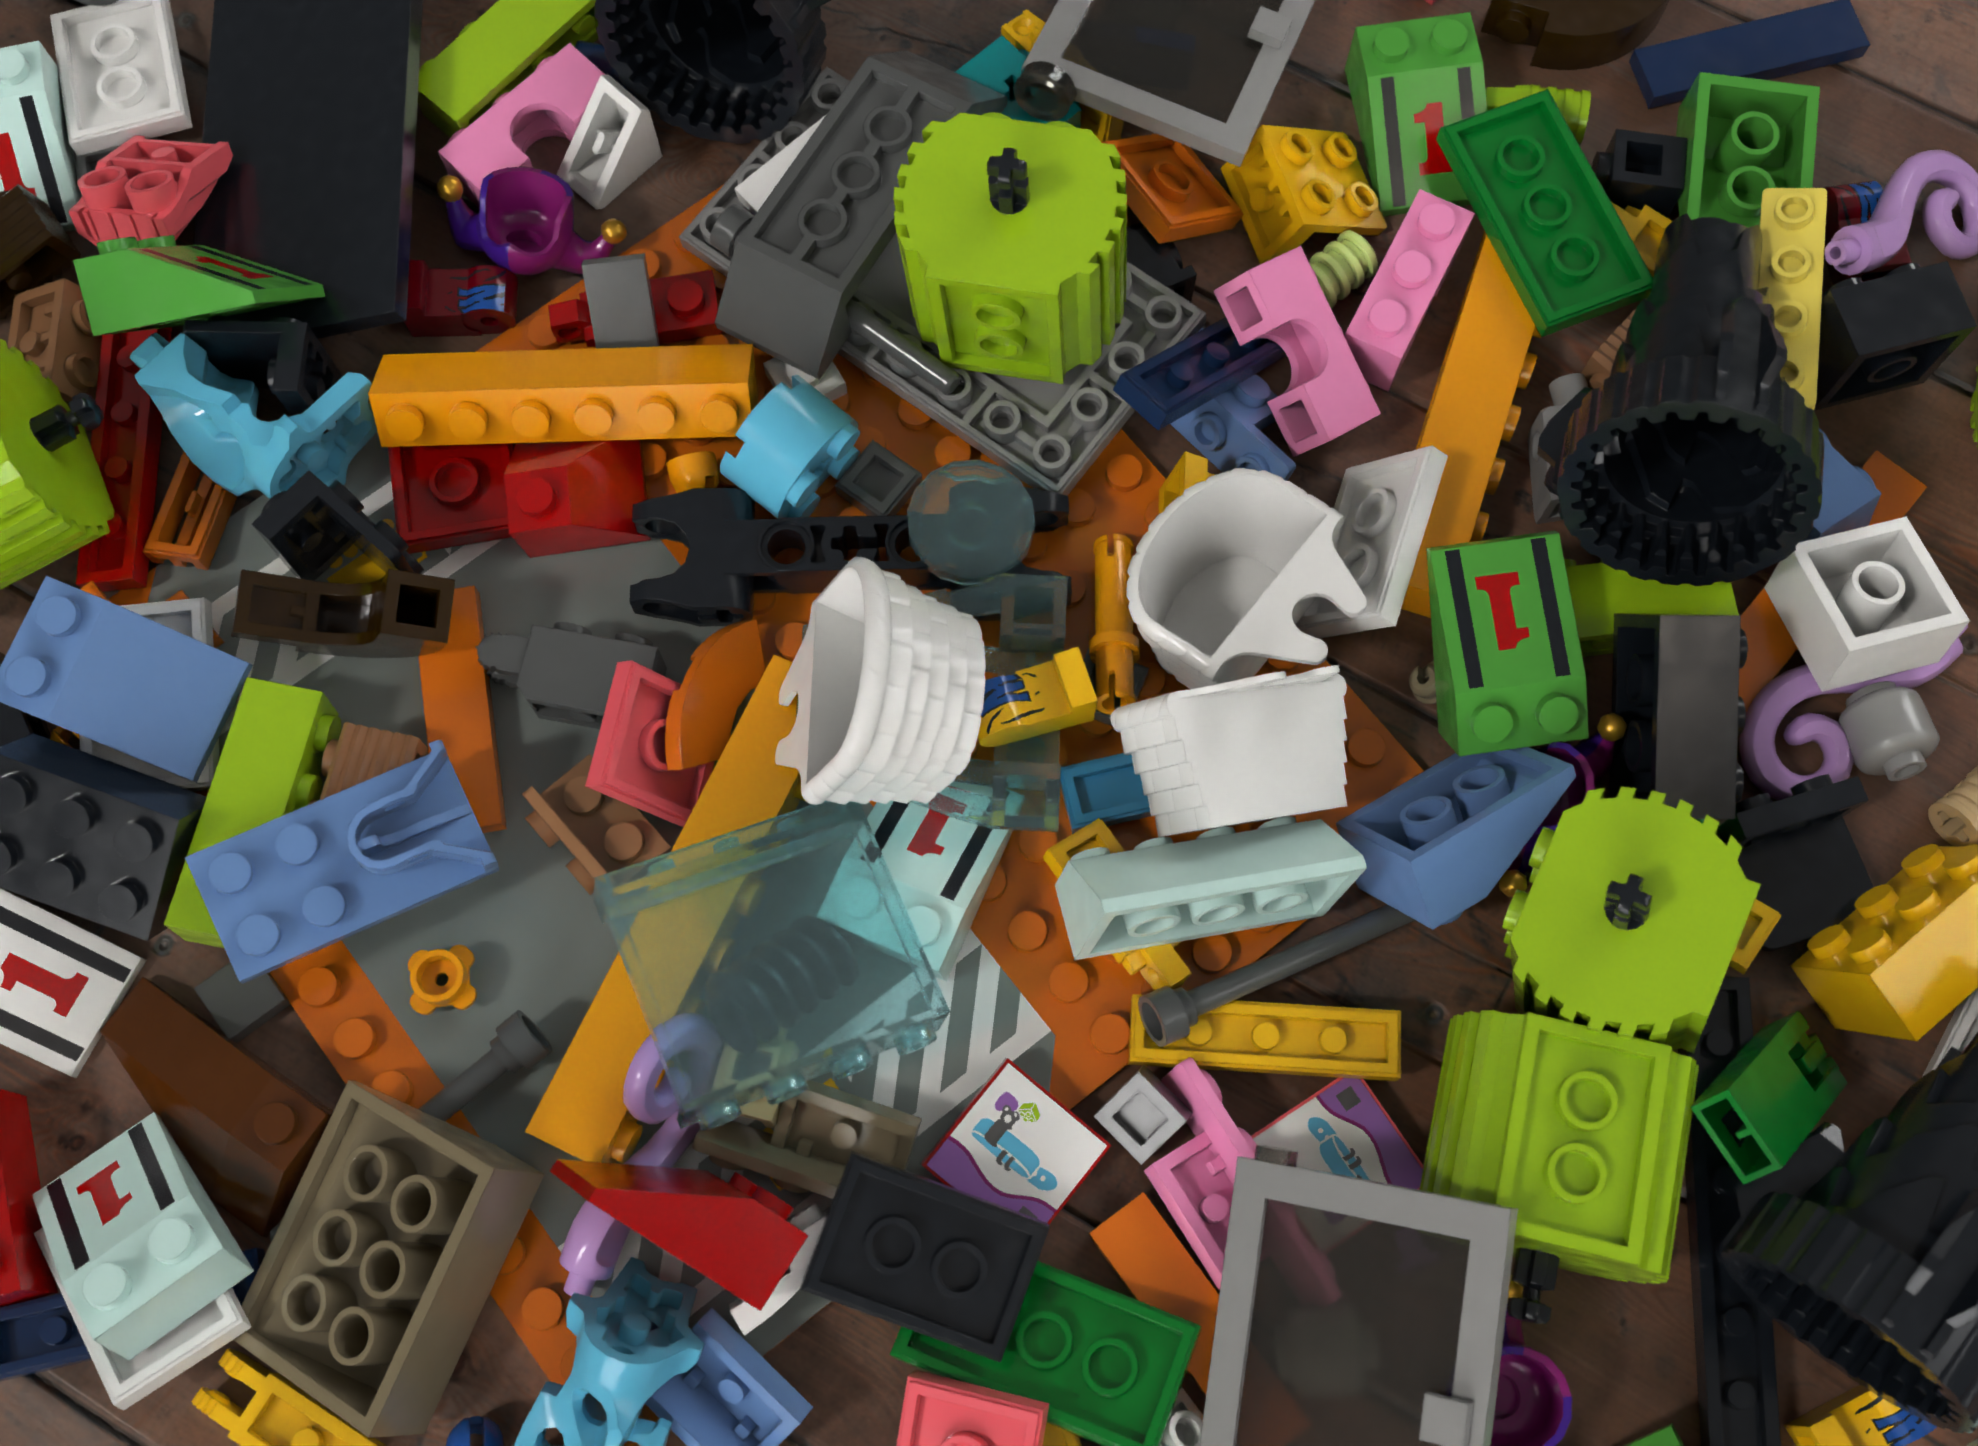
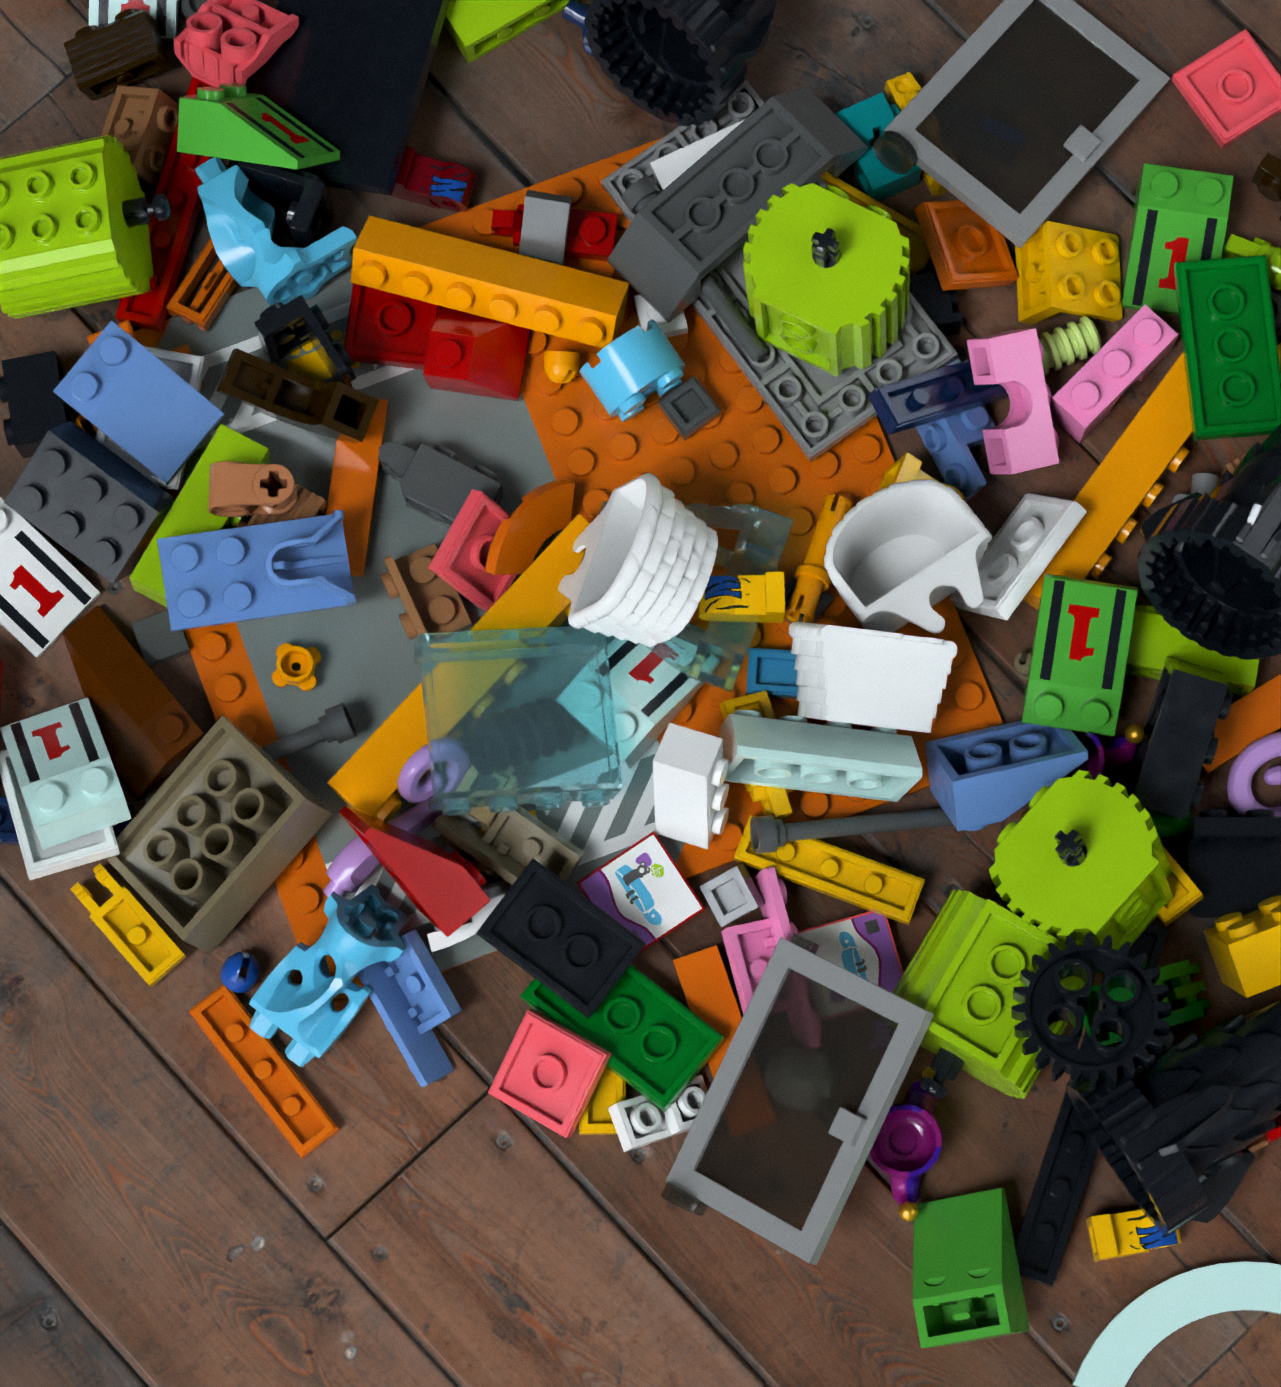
camera: 20 degrees right, 5 degrees up
(298, 755) = (244, 489): none -> nougat piece
(525, 222) = (495, 138): magenta piece -> none
(539, 107) = (546, 43): bright pink arch -> none
(610, 145) = (570, 93): white slope -> none
(735, 553) = (573, 433): black piece -> none
(970, 521) = (740, 460): clear light blue tile -> none
(1044, 978) = (690, 786): none -> white brick
(1818, 1131) = (1134, 1020): none -> black gear

